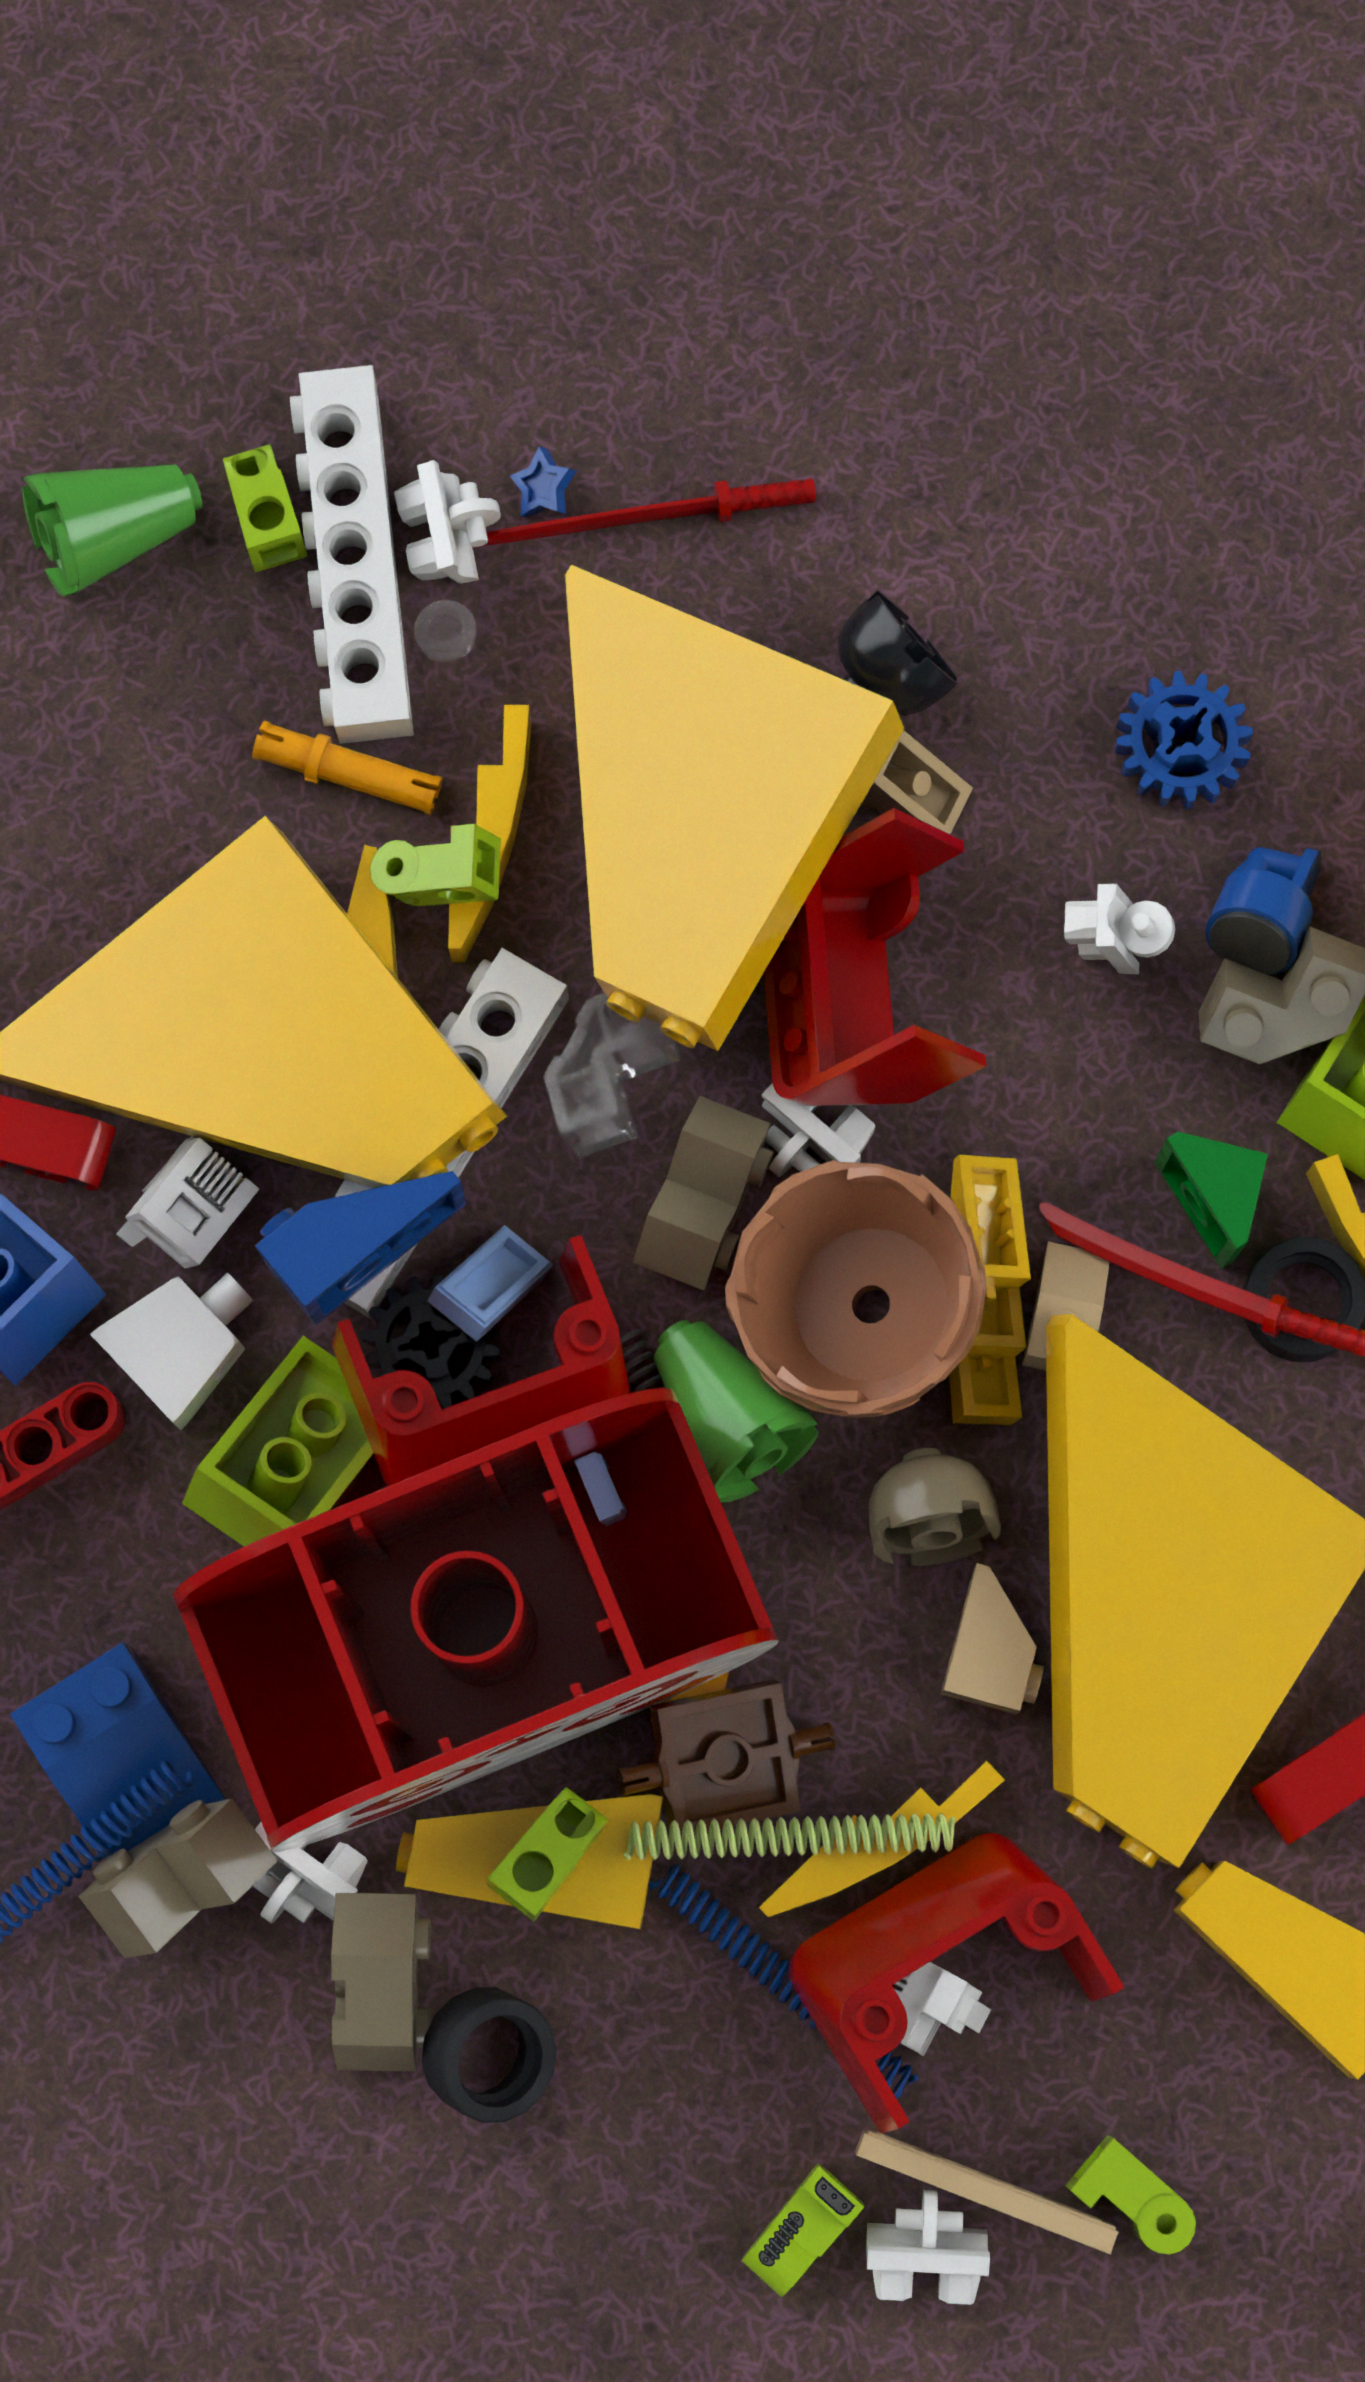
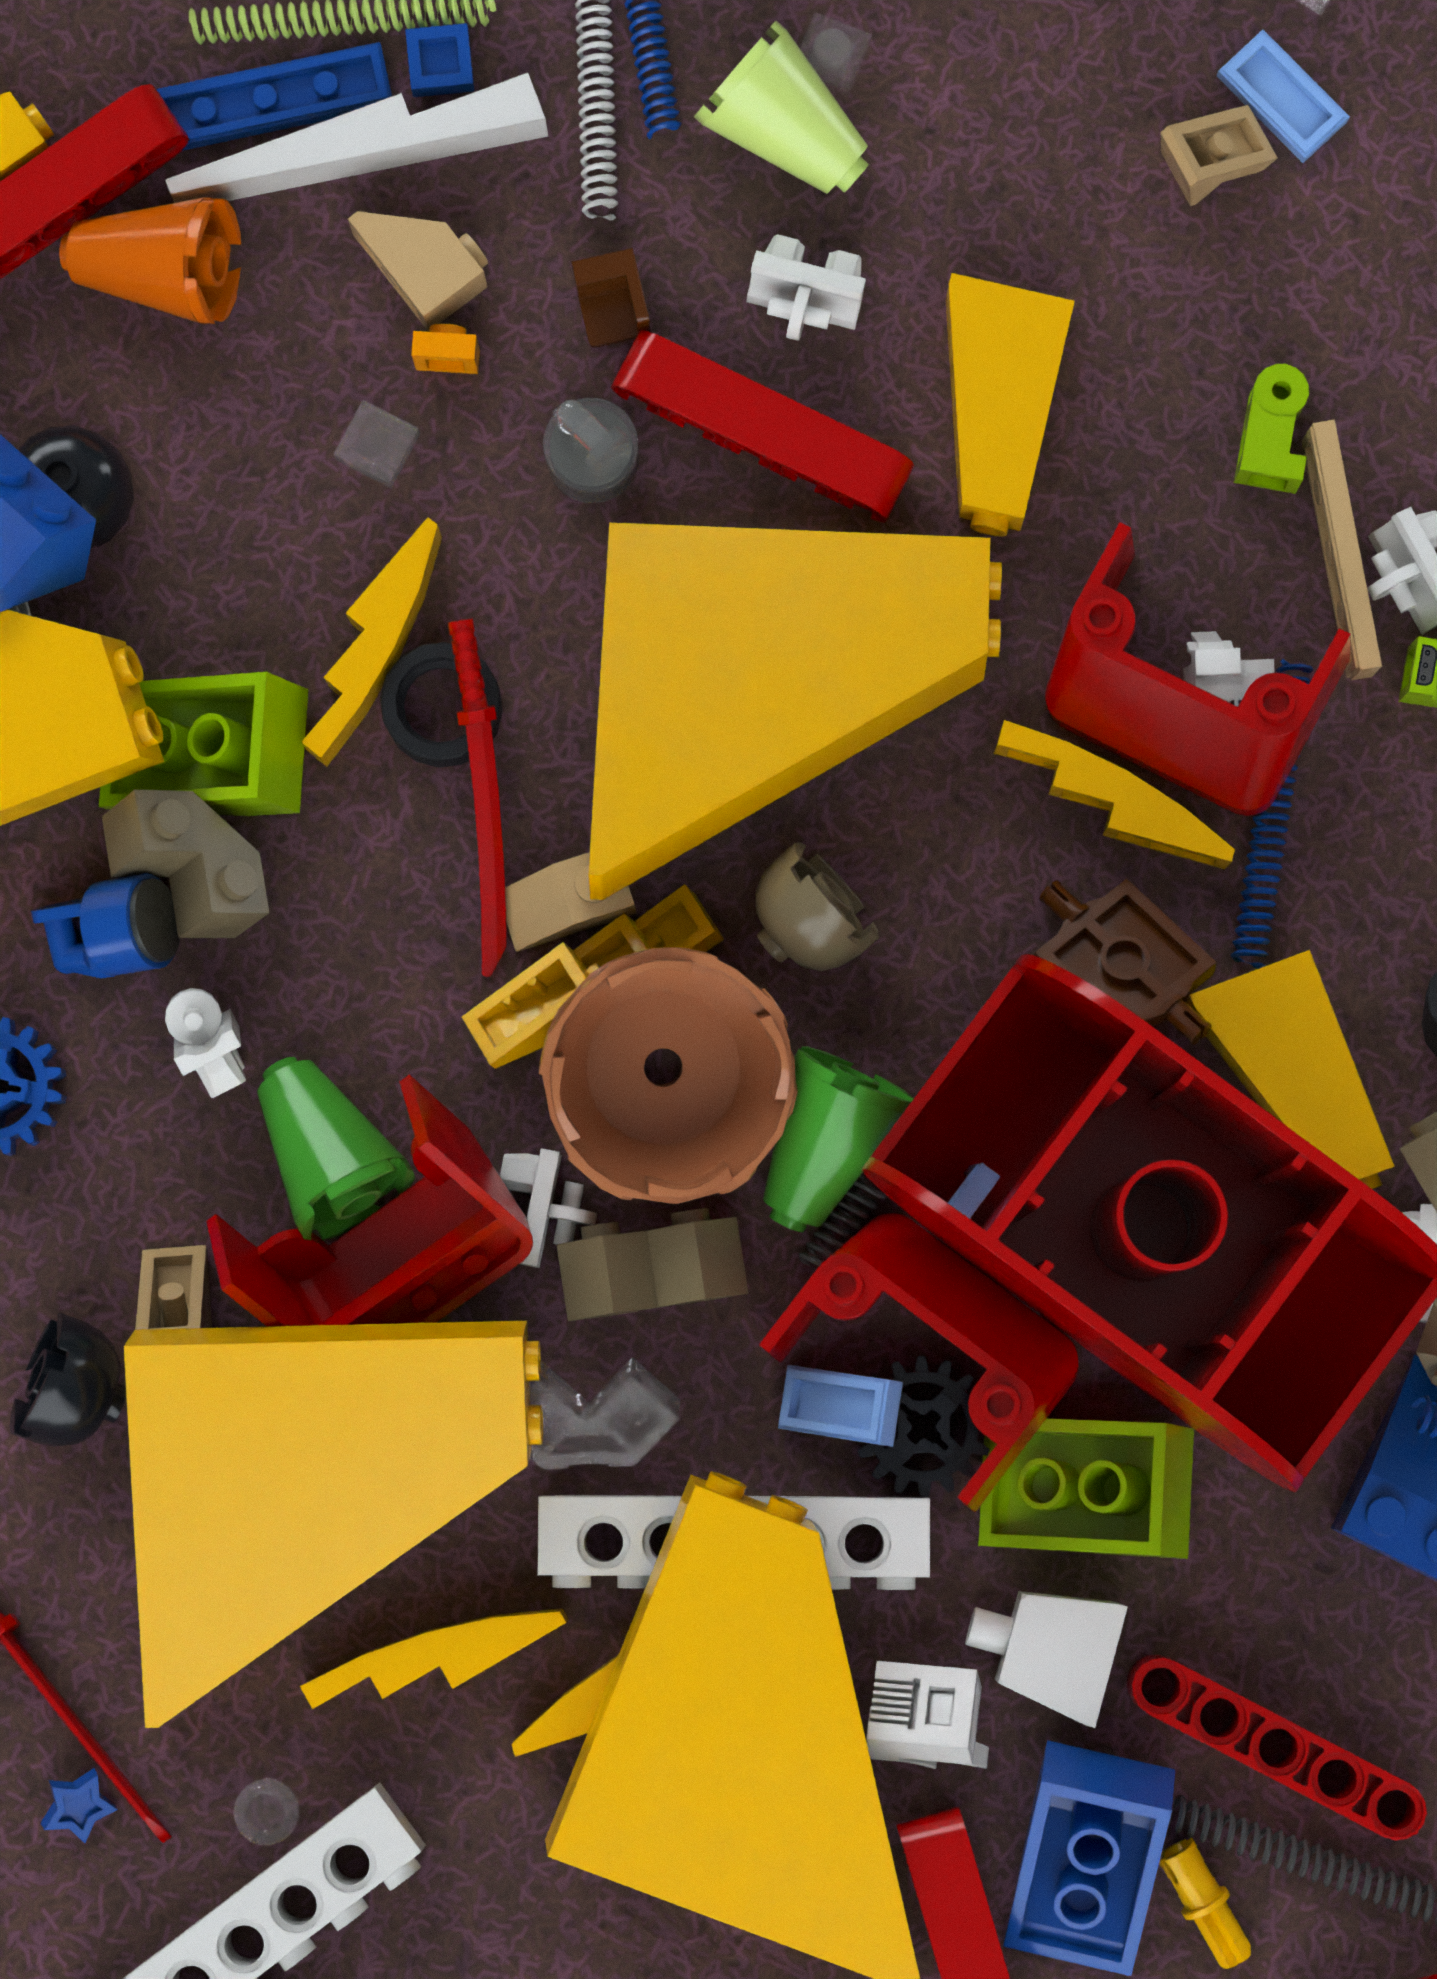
camera: 120 degrees left, 5 degrees up
(345, 767) = (447, 1823): light orange pin -> none
(350, 1239) = (898, 1546): blue slope -> none
(441, 872) = (514, 1682): lime leg -> none
(455, 523) = (159, 1865): white hips -> none
(547, 1854) = (1298, 1057): lime leg -> none
(788, 1836) = (1161, 869): yellowish green piece -> none
(967, 977) = (326, 1150): none -> bright green cone
(991, 1650) = (899, 797): tan slope -> none
(1215, 1188) = (395, 822): green slope -> none

